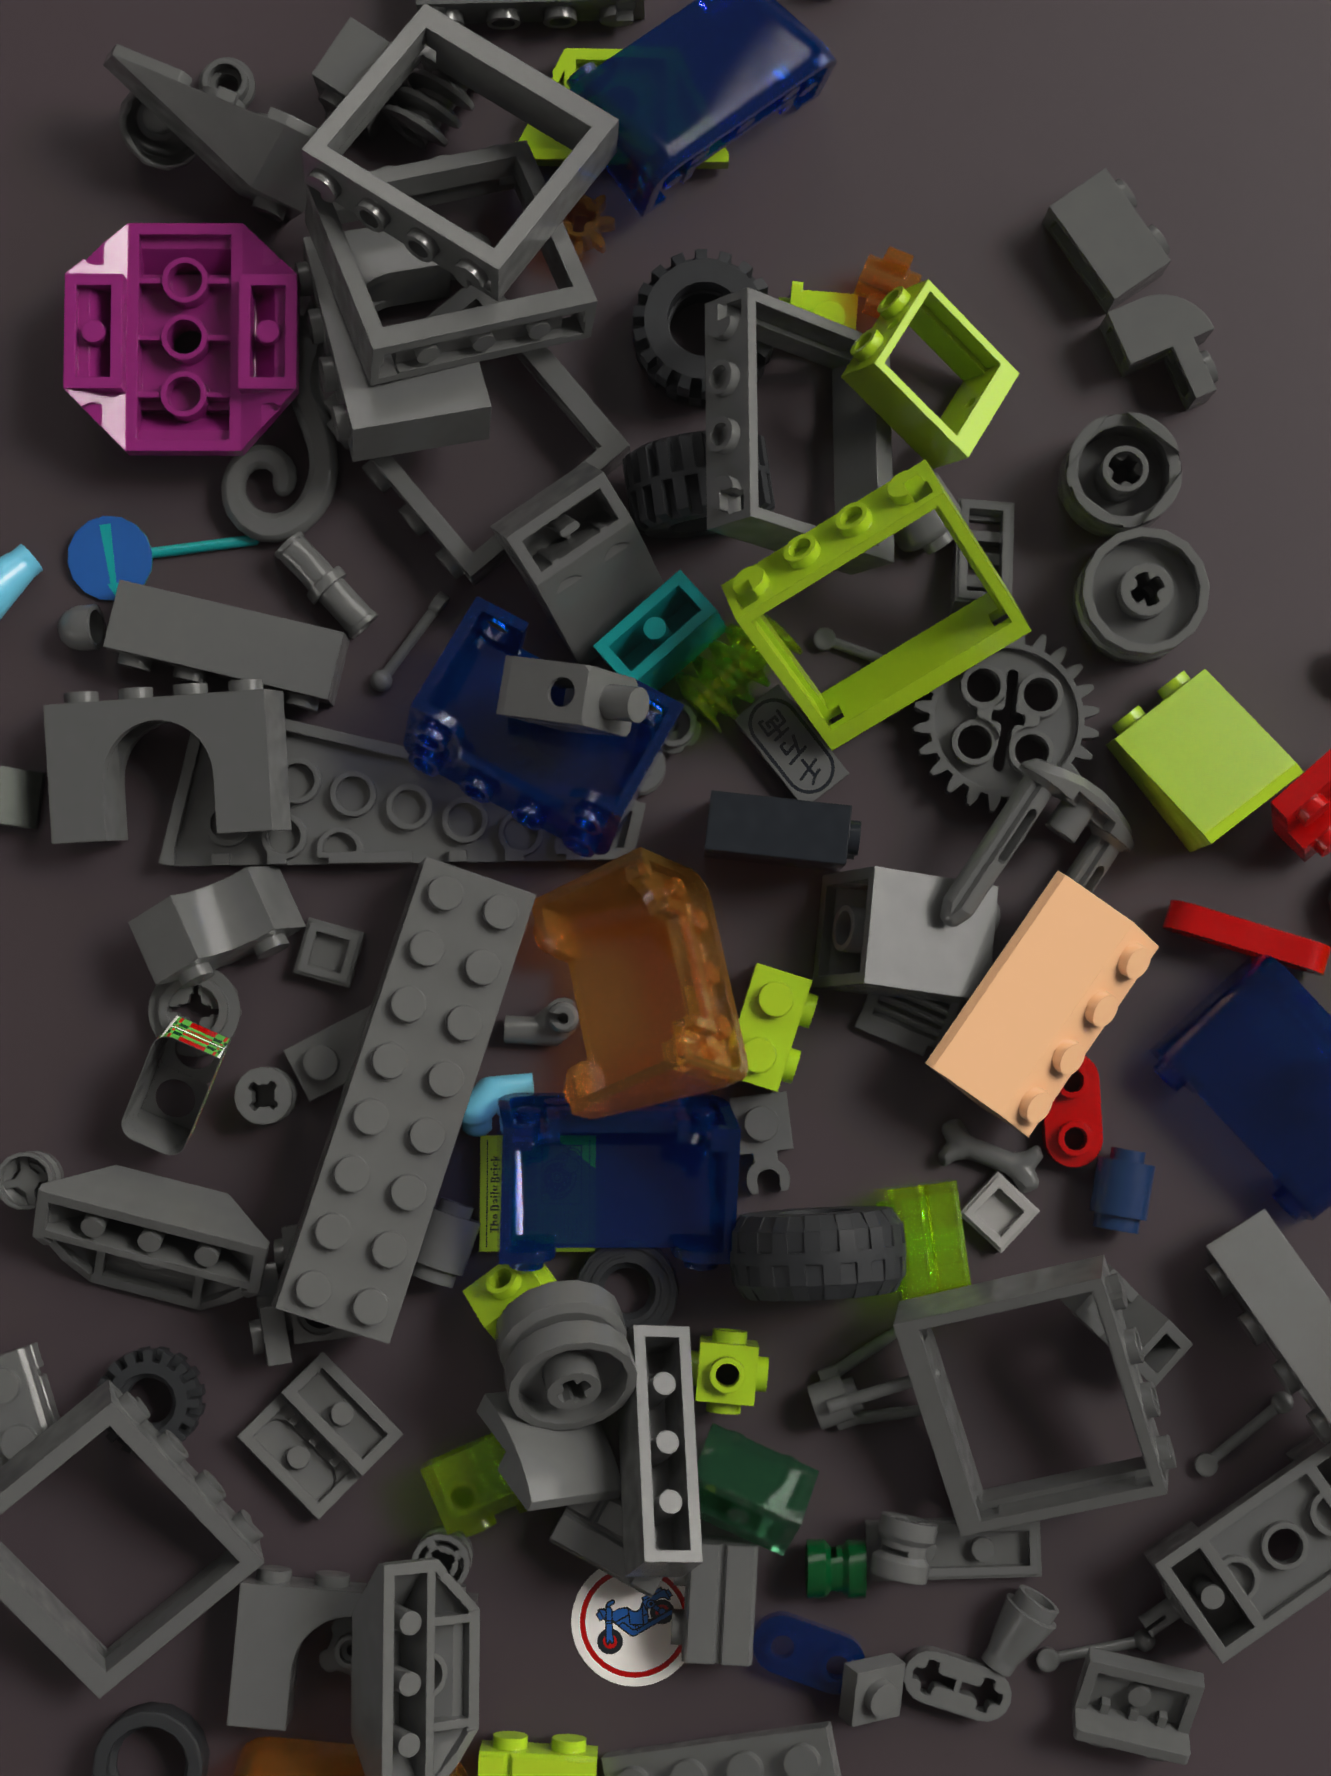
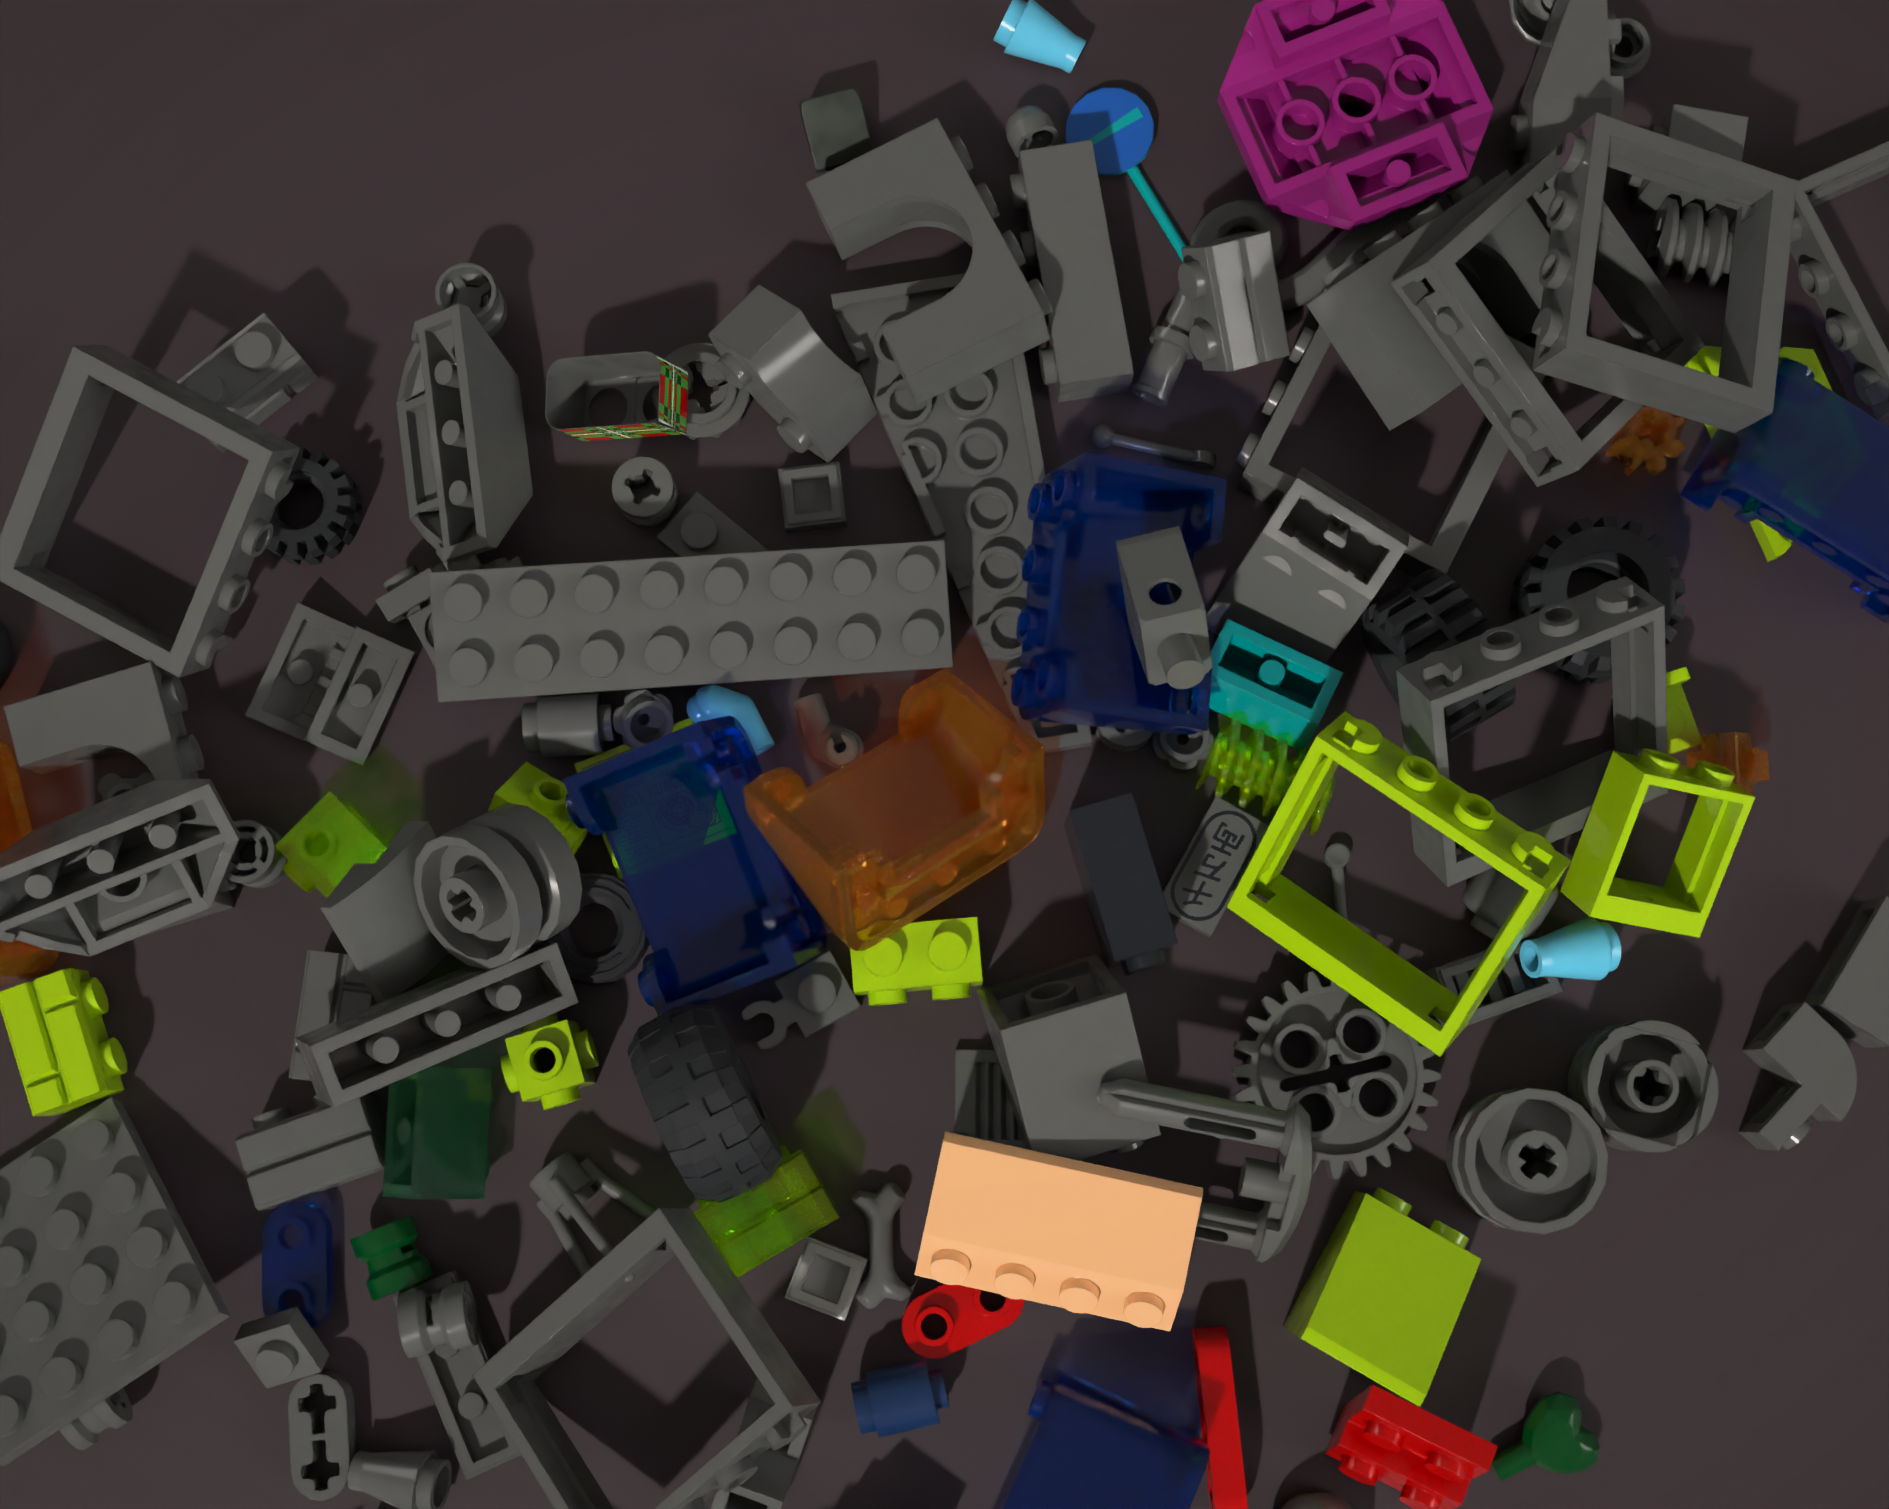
camera: 70 degrees right, 5 degrees down
(317, 519) = (1234, 301): none -> dark grey brick
(481, 1174) = (643, 702): none -> dark grey plate
(625, 1631) = (247, 1070): white sticker -> none
(987, 480) = (1576, 952): none -> medium azure cone

